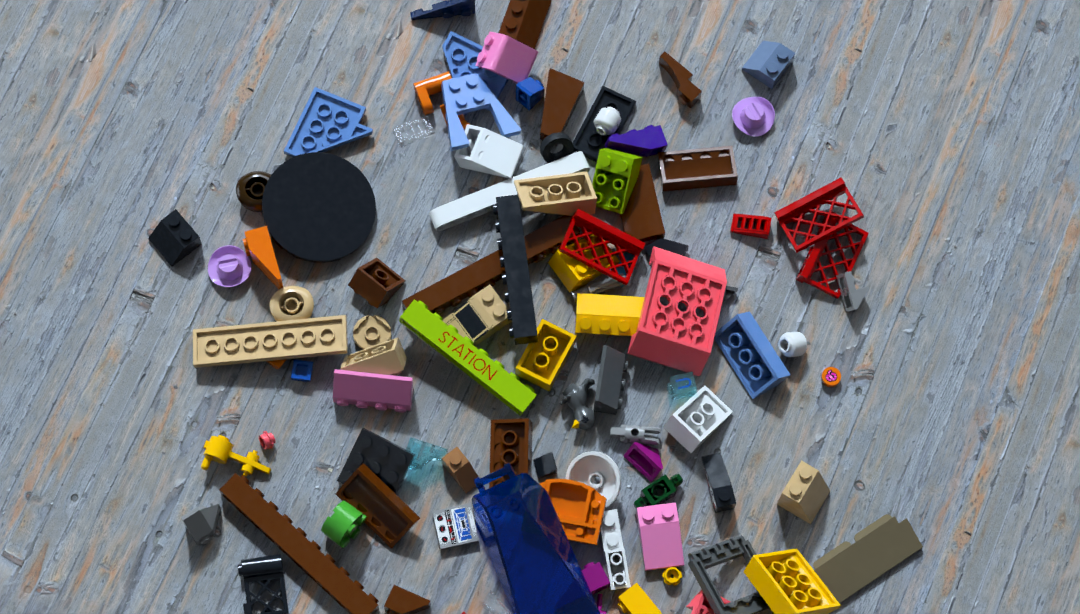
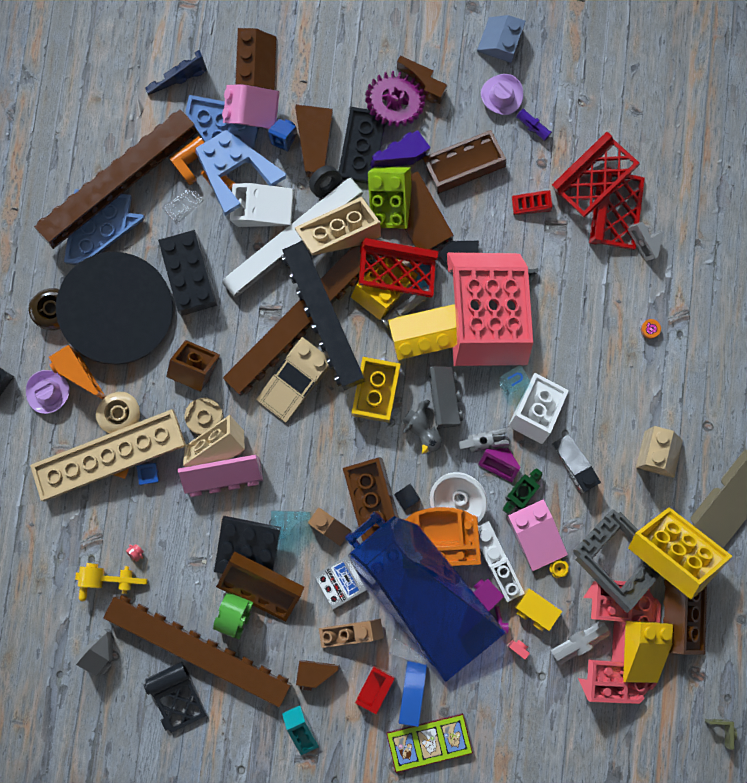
camera: 10 degrees left, 10 degrees up
(357, 88) = (115, 179): none -> reddish brown brick
(398, 195) = (187, 272): none -> black brick
(452, 576) = (351, 633): none -> medium nougat slope
(467, 357) = (302, 415): lime brick -> none
(607, 121) = (365, 140): white head -> none
(647, 91) = (397, 89): none -> magenta gear
(751, 354) = (570, 330): medium blue slope -> none
(775, 153) = (533, 124): none -> dark purple pin
(792, 344) = (606, 308): white head -> none

